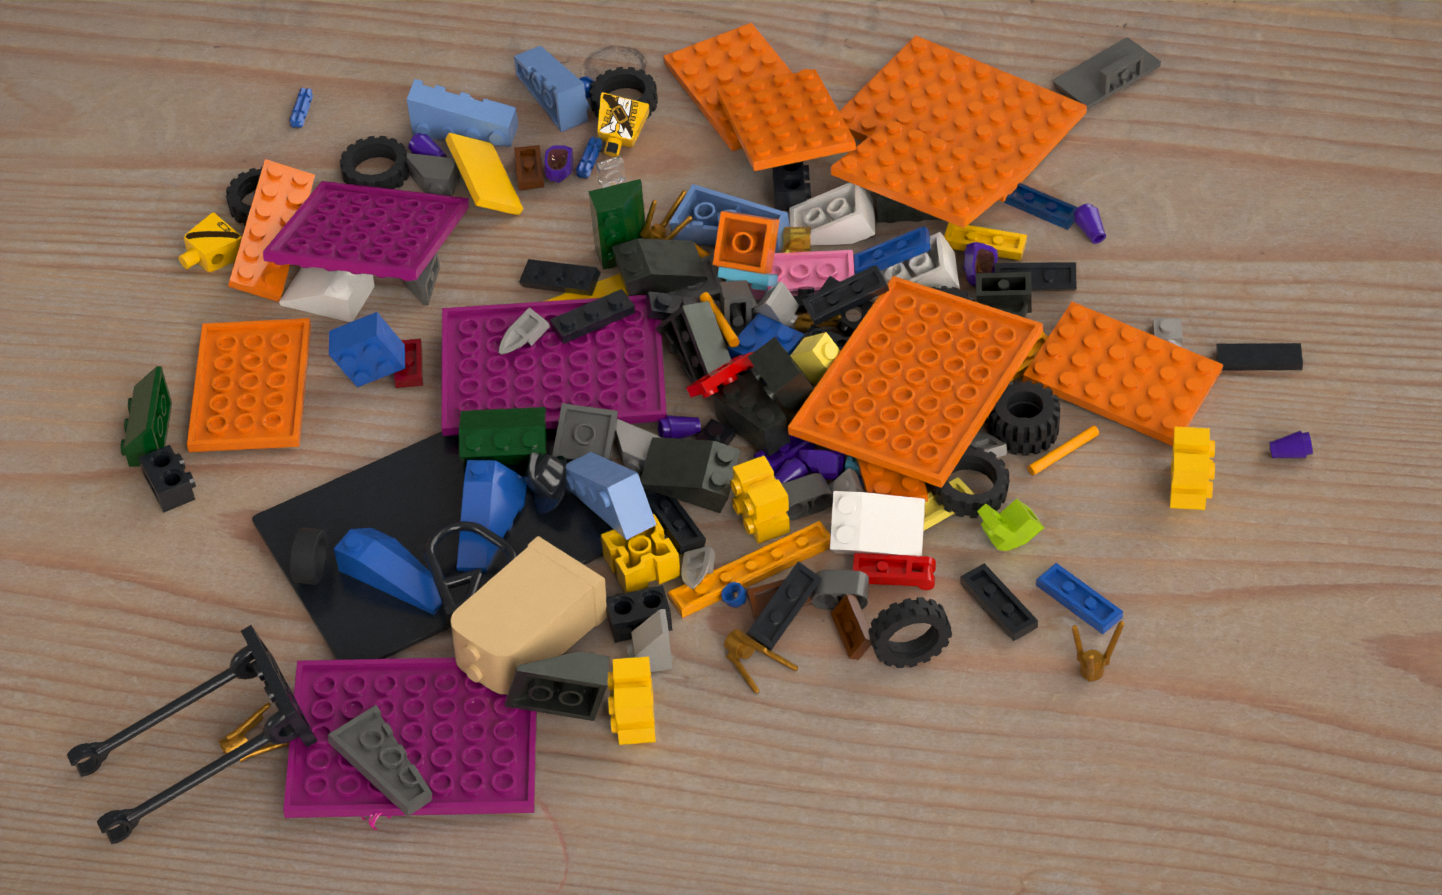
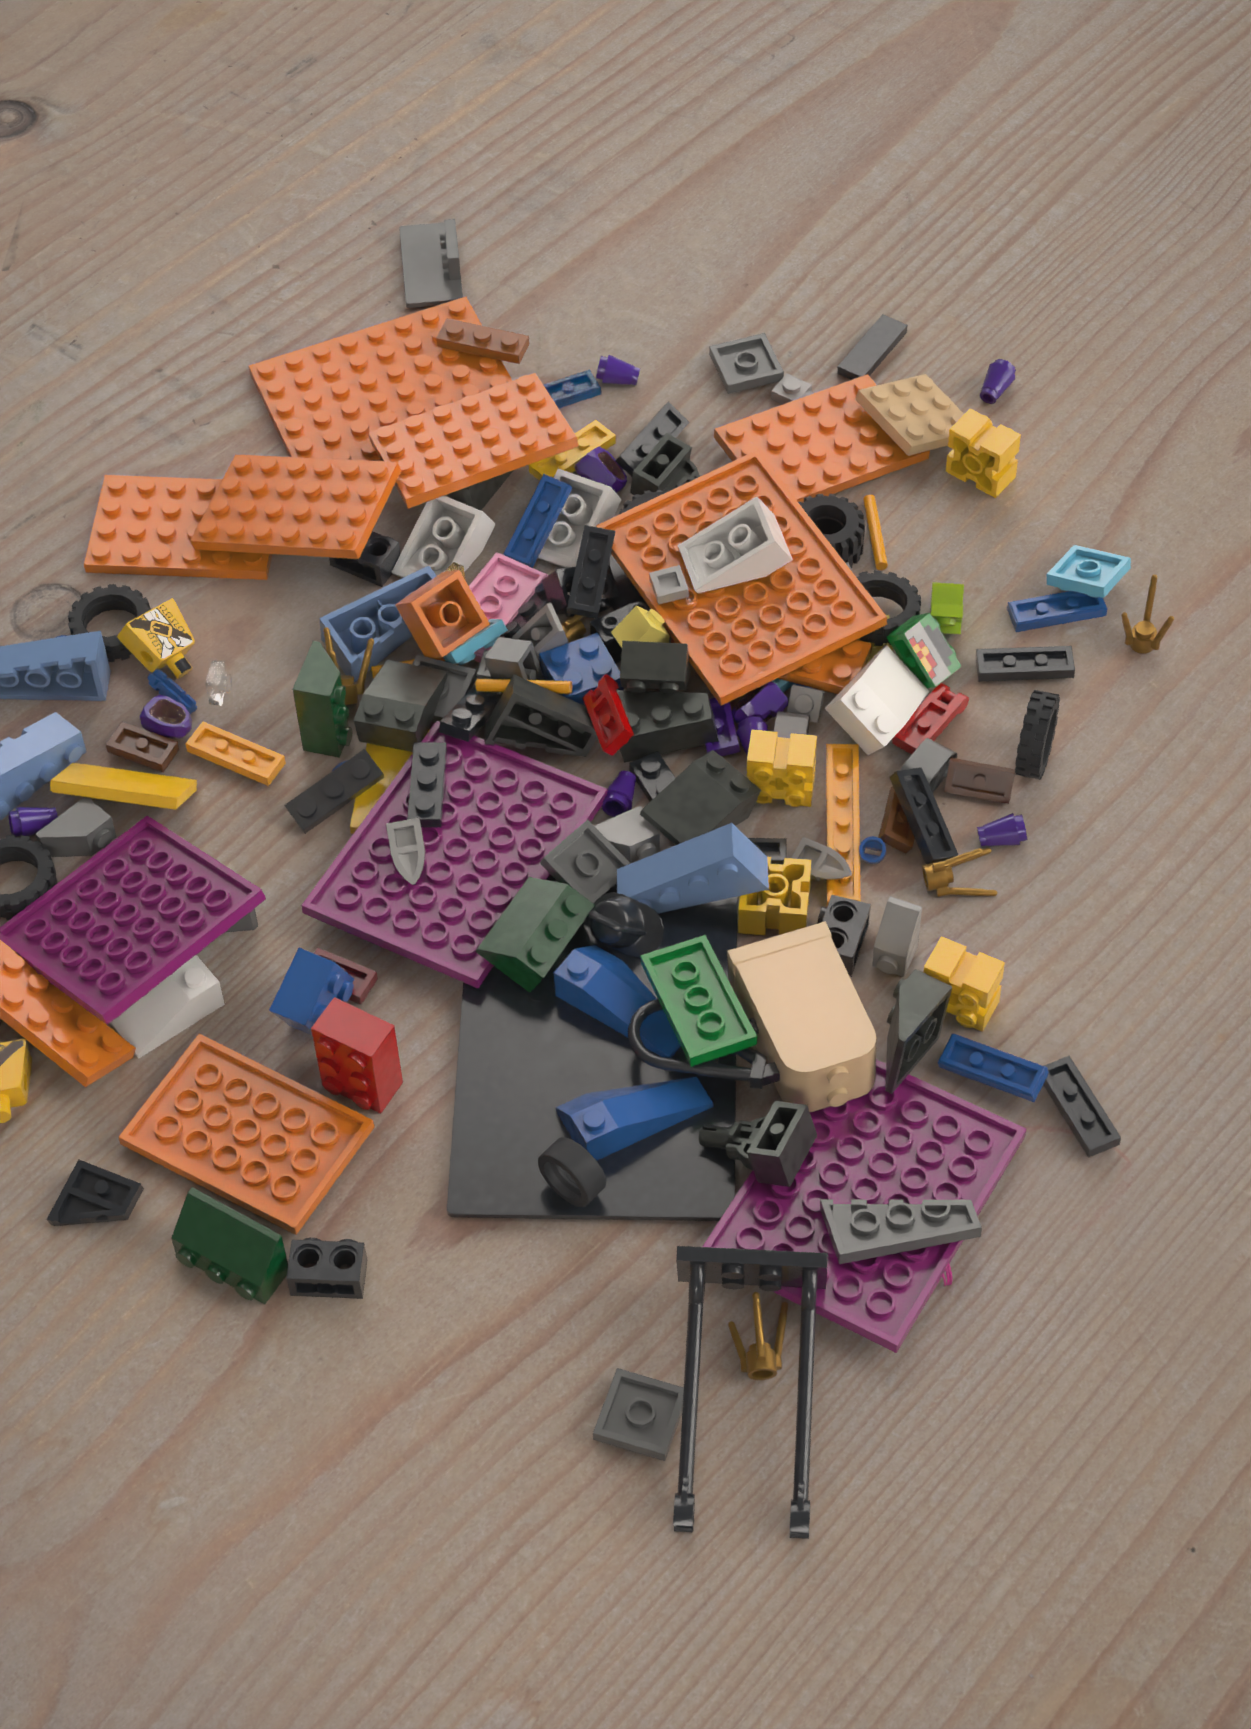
camera: 60 degrees left, 5 degrees up
(149, 692) = (640, 1414): none -> dark grey plate
(153, 338) = (94, 1197): none -> black wing
(326, 396) = (357, 1055): none -> red brick
(403, 652) = (768, 1145): none -> pearl dark grey brick
(488, 544) = (698, 1000): none -> green plate
(558, 214) = (235, 753): none -> light orange plate
(579, 761) = (993, 1067): none -> blue tile
(581, 831) = (1080, 1107): none -> black plate
(815, 666) = (1003, 831): none -> dark purple cone
(862, 340) = (668, 584): none -> light grey plate
(927, 358) = (735, 548): none -> white slope
(946, 528) = (924, 650): none -> brick
(1041, 134) = (482, 341): none -> dark orange plate
(1126, 595) = (1088, 571): none -> medium azure plate
(1169, 290) = (746, 363): none -> plate
(1203, 401) = (911, 412): none -> tan plate

